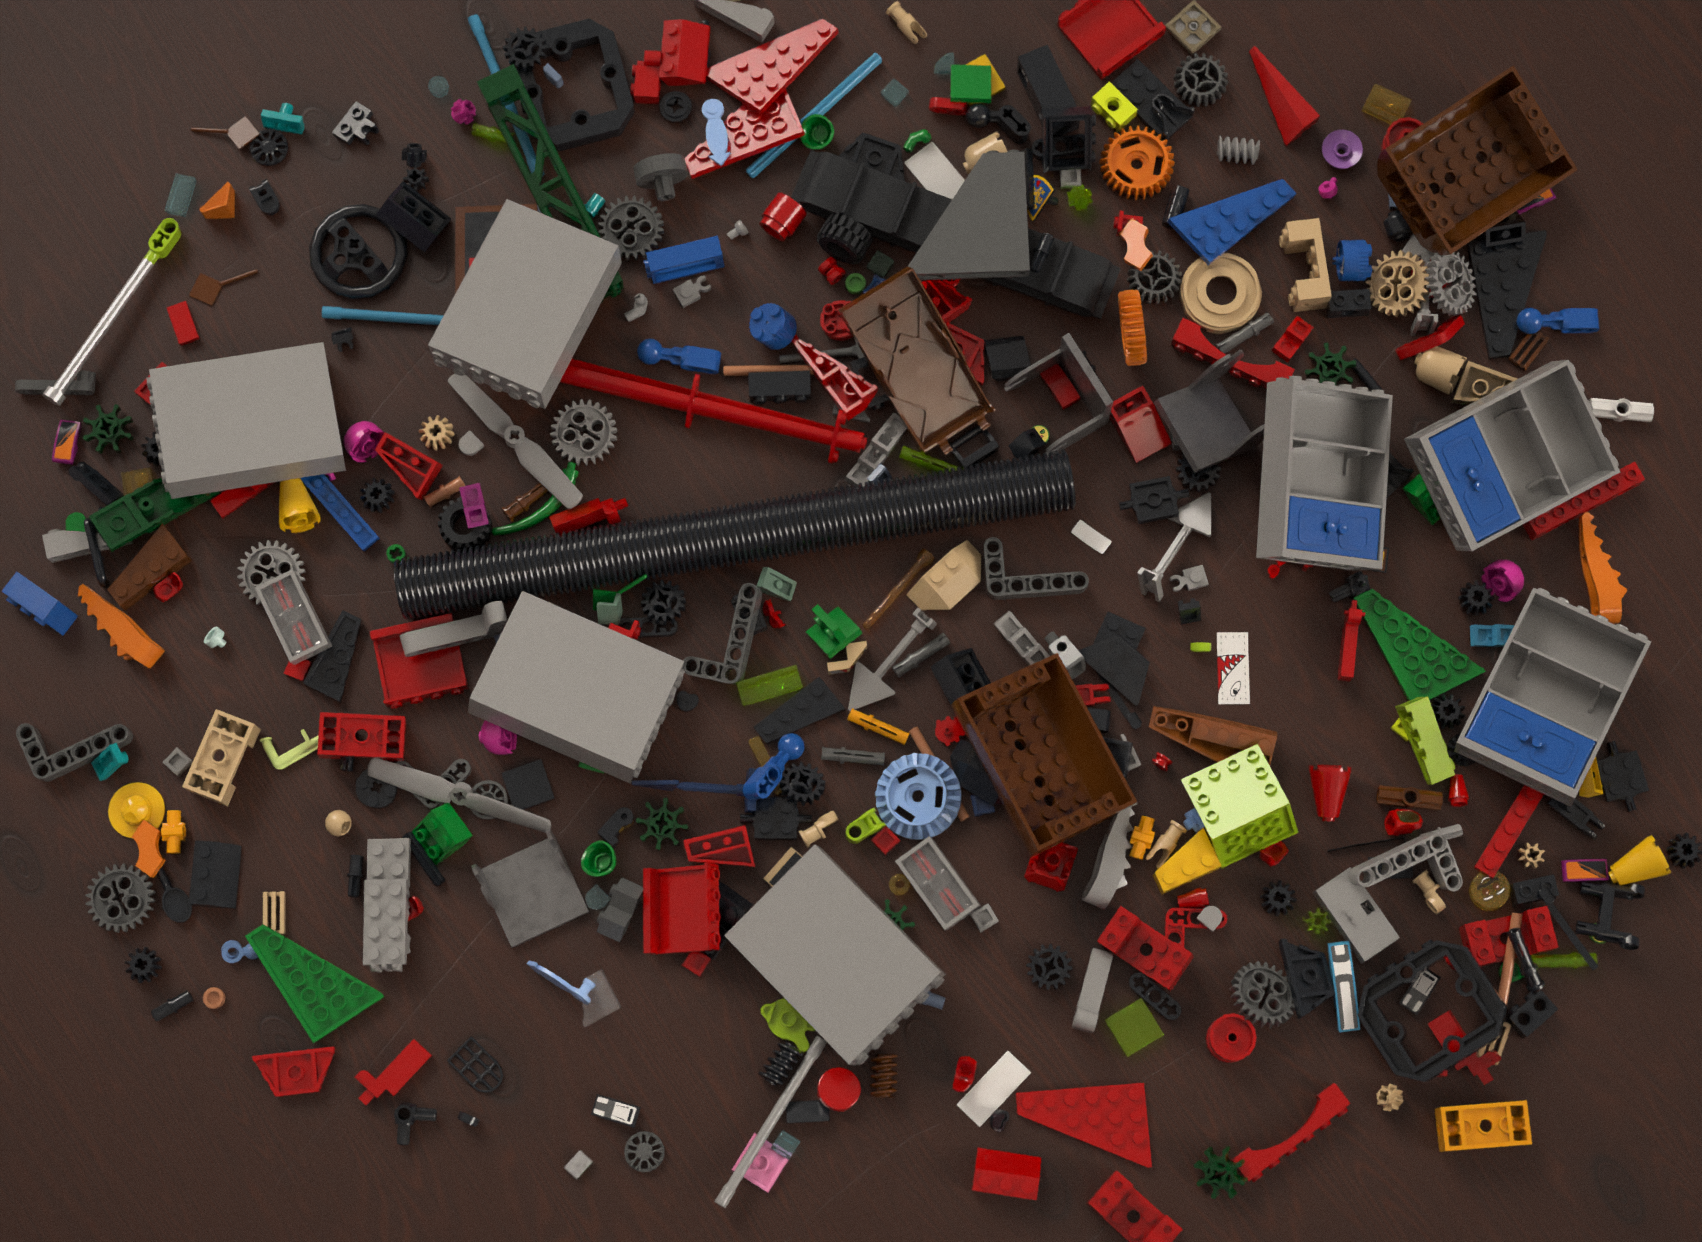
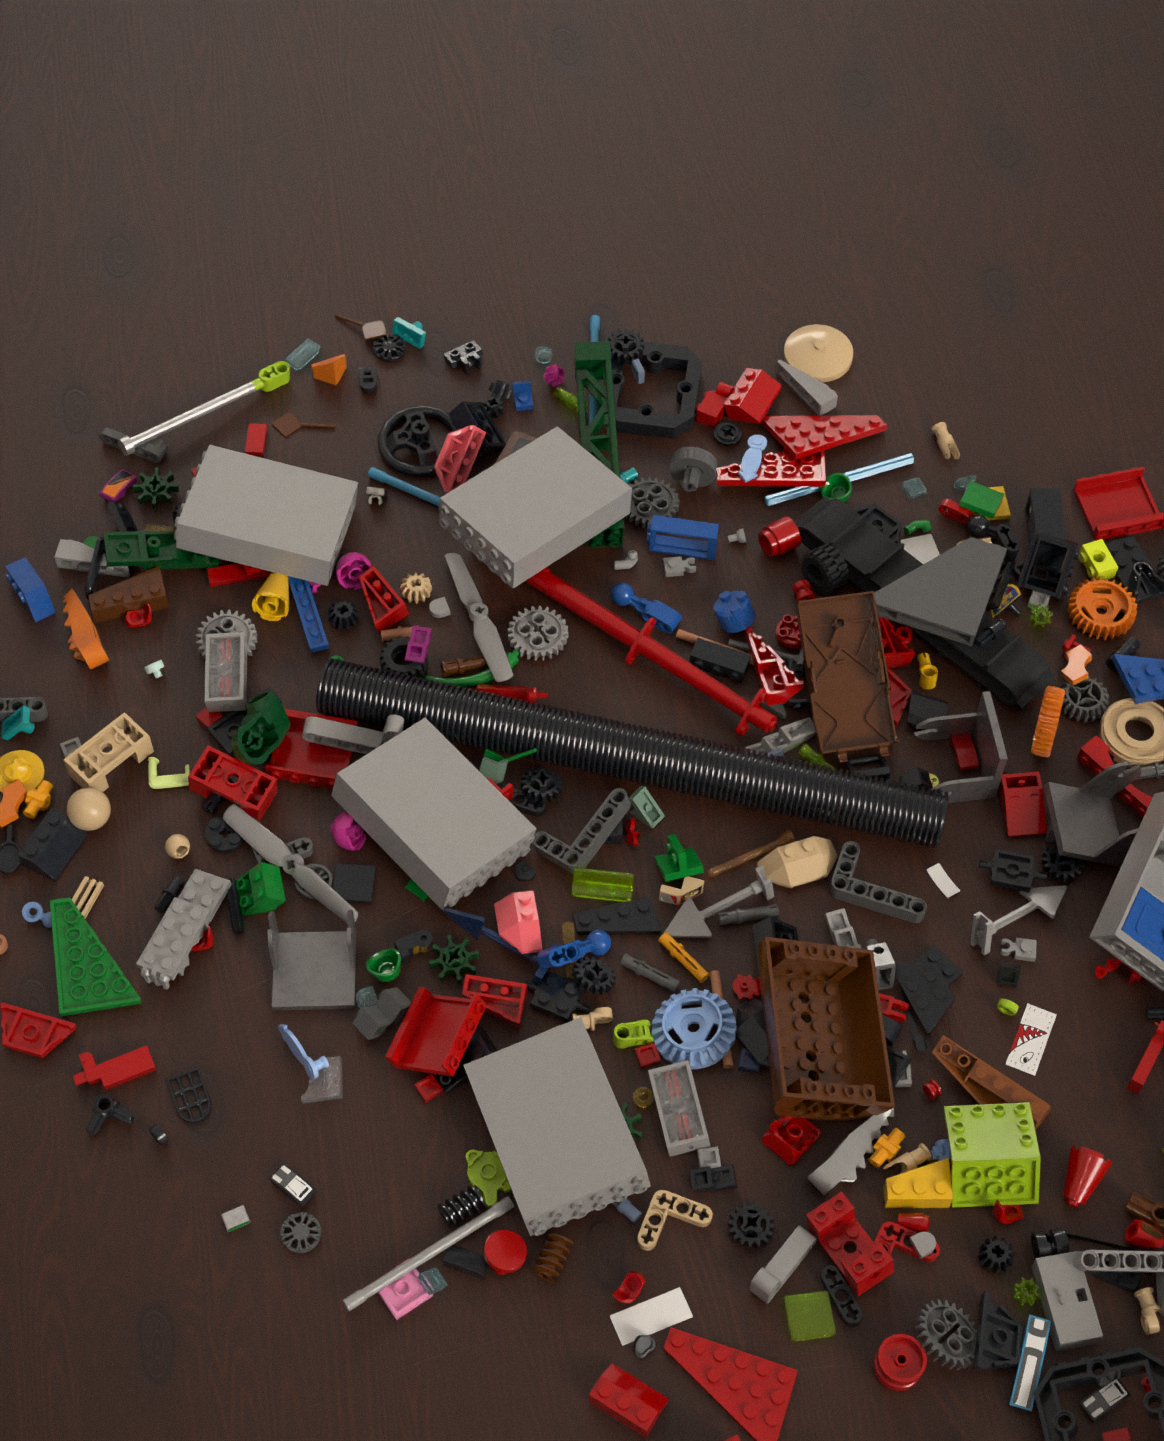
camera: 20 degrees right, 20 degrees down
(232, 824) = (88, 809): none -> tan piece
(362, 669) = (261, 729): none -> dark green piece
(411, 266) = (458, 456): none -> coral wedge
(439, 148) = (522, 395): none -> blue slope
(707, 759) = (519, 921): none -> coral wedge
(963, 987) = (664, 1210): none -> tan beam
(990, 309) = (927, 672): none -> yellow pin
(996, 935) = (714, 1179): none -> black slope
(1329, 865) = (1049, 1243): none -> black wheel

